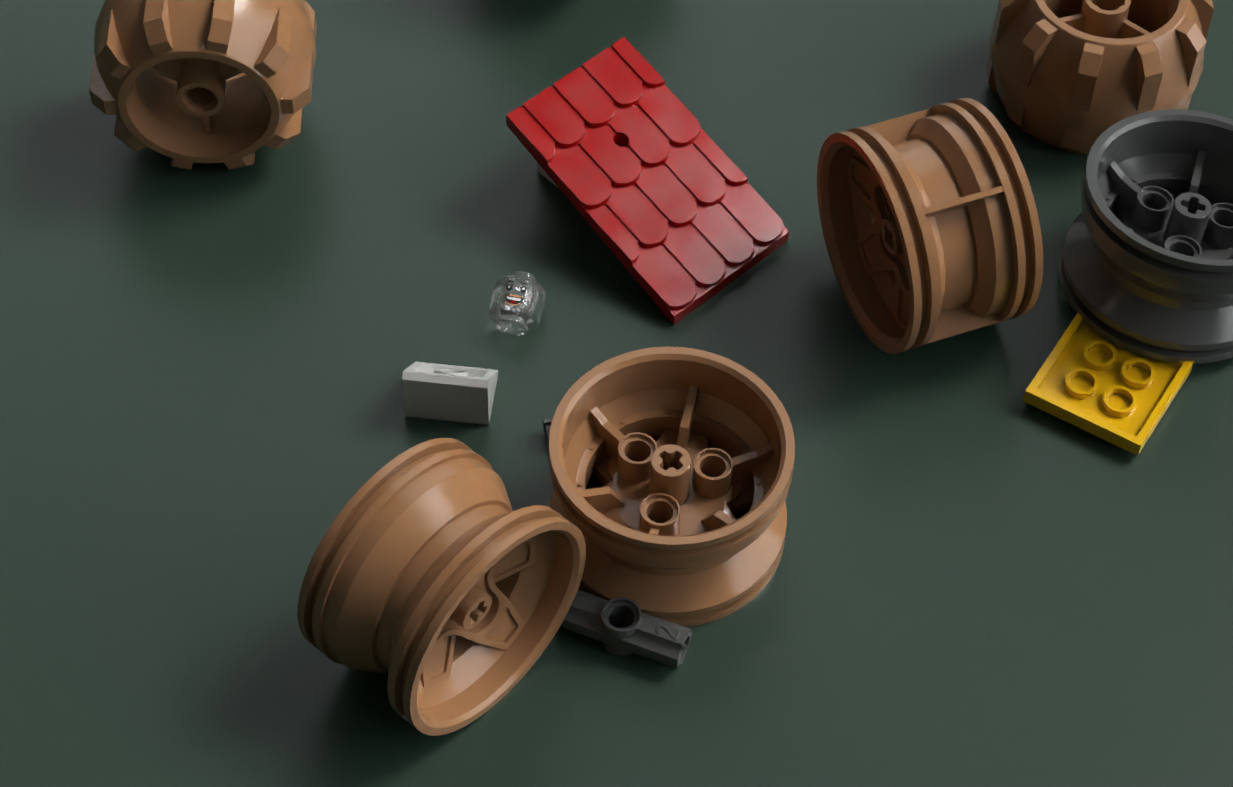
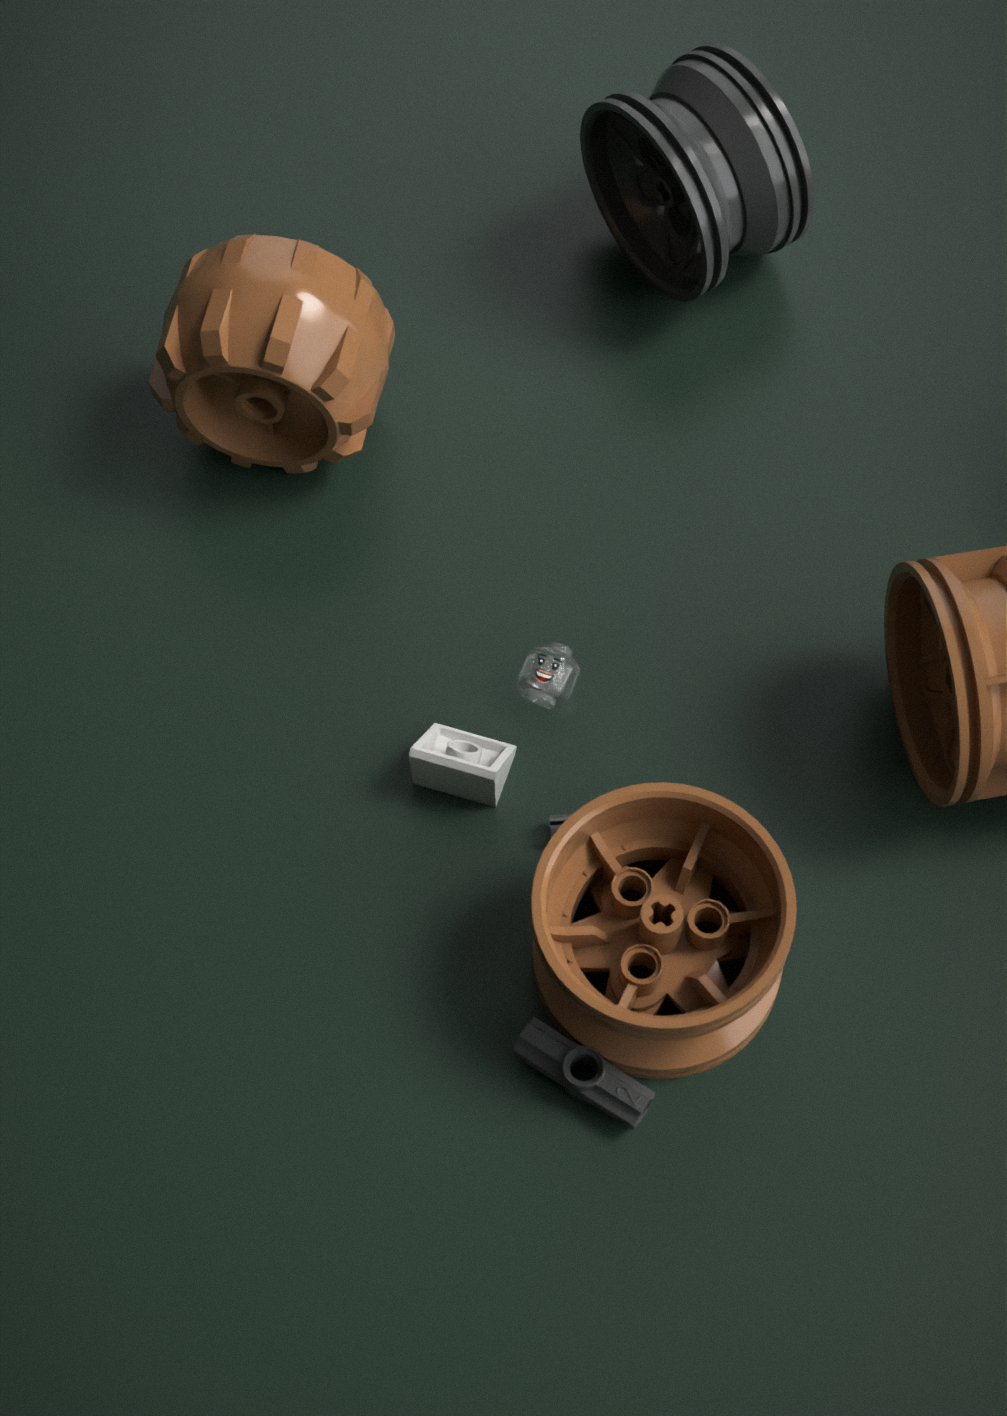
camera: 15 degrees right, 10 degrees up
(440, 584) = (392, 1021): medium nougat wheel -> none
(648, 179) = (709, 556): red piece -> none

